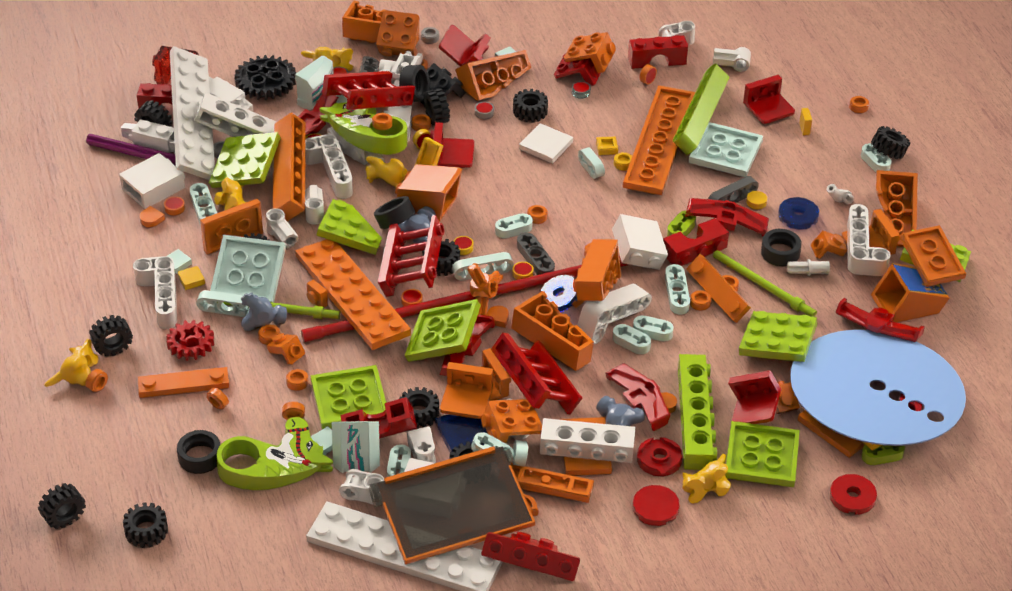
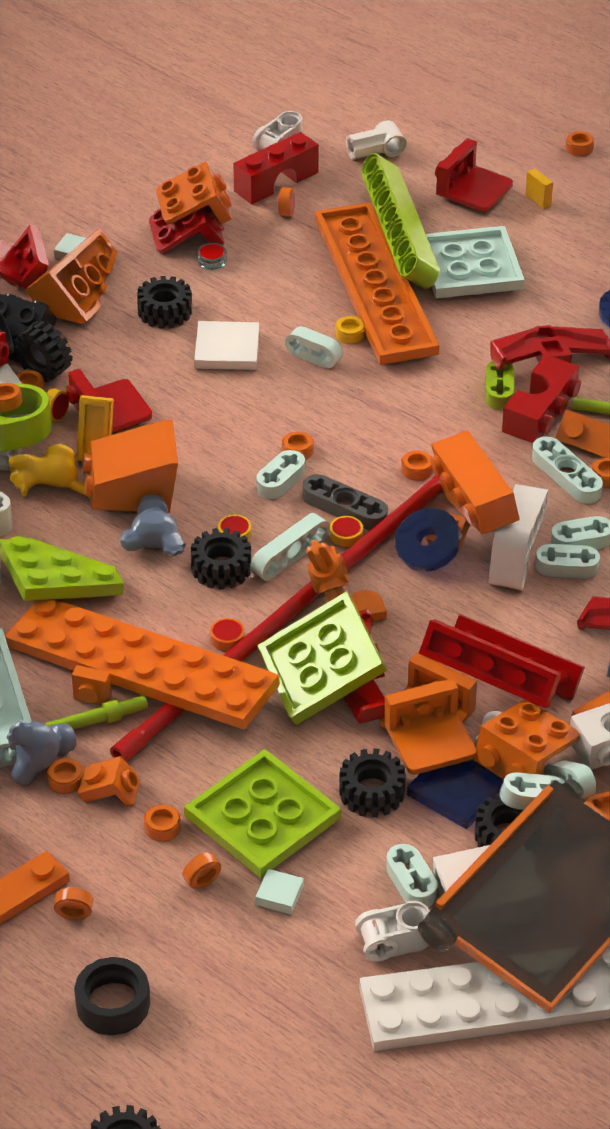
camera: 30 degrees left, 0 degrees up
(276, 465) = (247, 959): lime animal -> none
(356, 446) = (341, 877): light aqua slope -> none
(394, 212) = (108, 522): black tyre -> none
(394, 420) = (366, 813): red arch -> none
(395, 250) = (156, 576): red fence -> none
(421, 444) = (424, 831): white piece -> none
(484, 110) = (103, 333): tile -> none
(543, 321) = (444, 589): orange wedge -> none
(607, 145) = (311, 316): yellow tile -> none
(639, 242) = (490, 425): white brick -> none
(736, 191) = (533, 309): dark grey beam -> none
(756, 200) = (563, 313): yellow tile -> none

